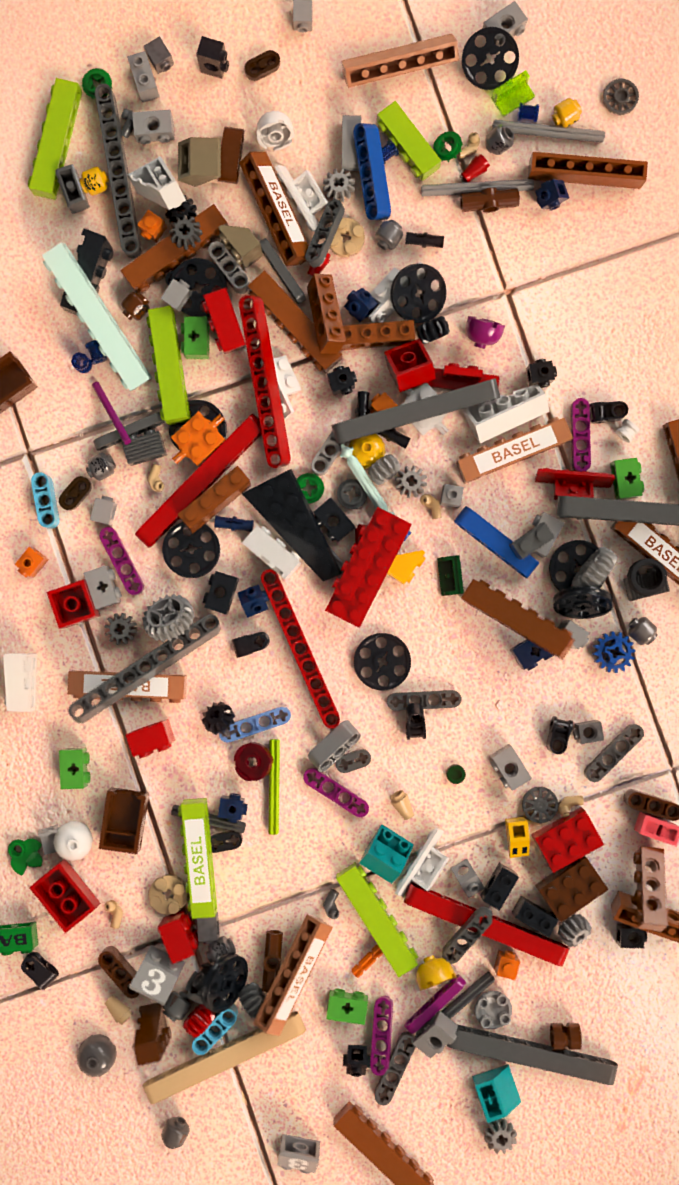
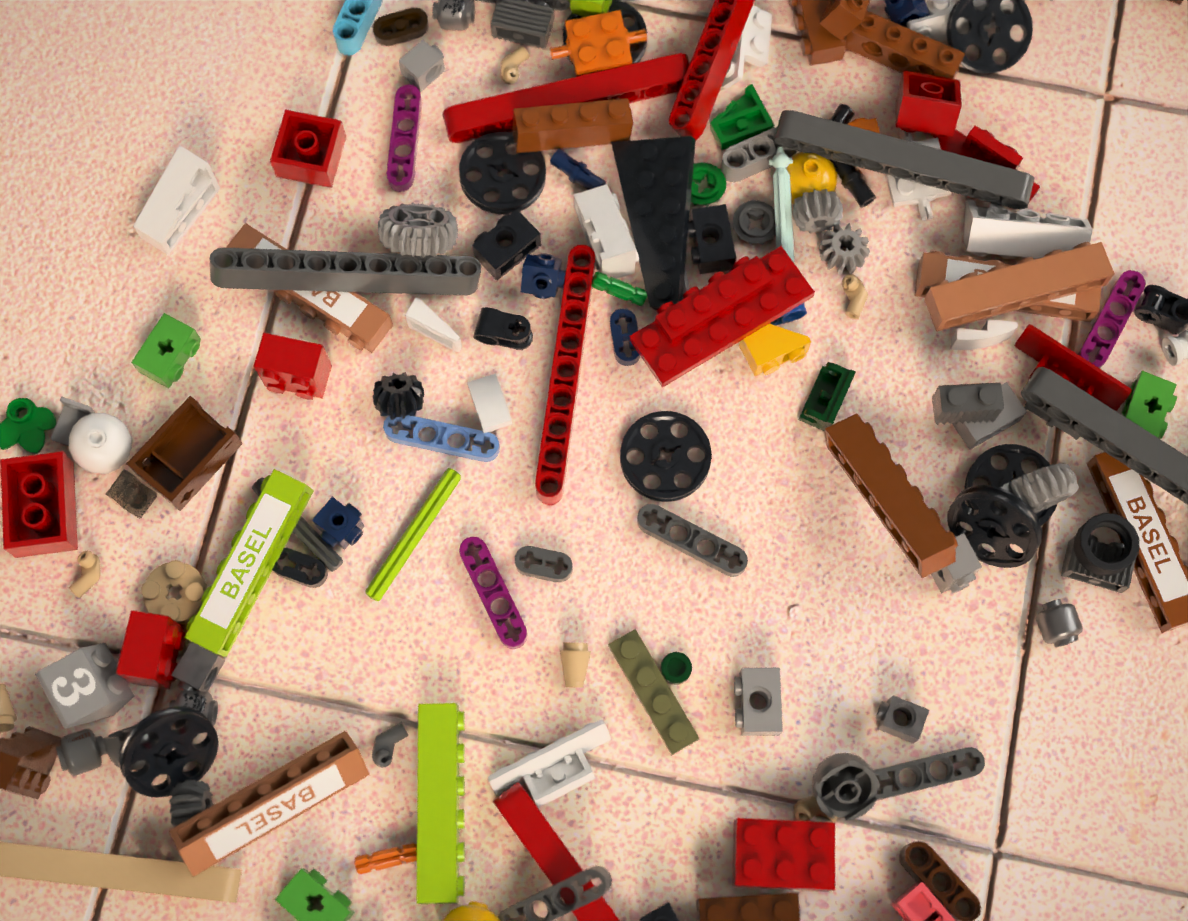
camera: 30 degrees right, 15 degrees down
(31, 562) = (290, 73): orange brick -> none
(95, 580) = (359, 152): light grey brick -> none
(110, 859) = (131, 494): none -> clear smoke bracket
(111, 967) = (30, 645): reddish brown beam -> none
(115, 625) = (347, 214): dark grey gear -> none
(198, 1020) = (97, 788): red gear -> none
(203, 665) = (425, 321): none -> white slope
(212, 1037) = (95, 819): medium azure beam -> none
(263, 759) = (415, 494): dark red plate -> none
(269, 690) = (489, 403): none -> white slope
(273, 949) = (266, 753): reddish brown piece -> none
(300, 582) = (619, 288): none -> green axle
(308, 435) = (741, 120): none -> green wing
(315, 609) = (619, 338): none -> dark blue beam
(334, 746) = (530, 524): light grey beam -> none
(337, 386) = (826, 78): black brick -> none
(386, 854) = (509, 718): teal slope -> none
(415, 721) = (660, 564): black piece -> none
(433, 330) = (983, 81): black gear -> none
(451, 496) = (889, 295): light grey brick -> none
(451, 793) = (653, 692): none -> olive plate
(469, 882) = (604, 829): light grey bracket -> none
(483, 331) = (1051, 119): magenta cylinder -> none
(494, 541) = (914, 388): blue beam -> none
(499, 886) = (644, 862): black brick -> none
(517, 837) = (712, 808): yellow slope -> none
(519, 484) = (991, 334): none -> white slope
(522, 453) = (1018, 285): none -> nougat brick
(523, 657) = (869, 567): dark blue brick -> none
(535, 371) = (1101, 209): black brick -> none
(540, 804) = (772, 784): dark grey wheel -> none
(559, 733) = (858, 695): black piece -> none
(579, 787) = (845, 786): none -> dark grey cylinder
(611, 659) = (992, 620): blue gear -> none

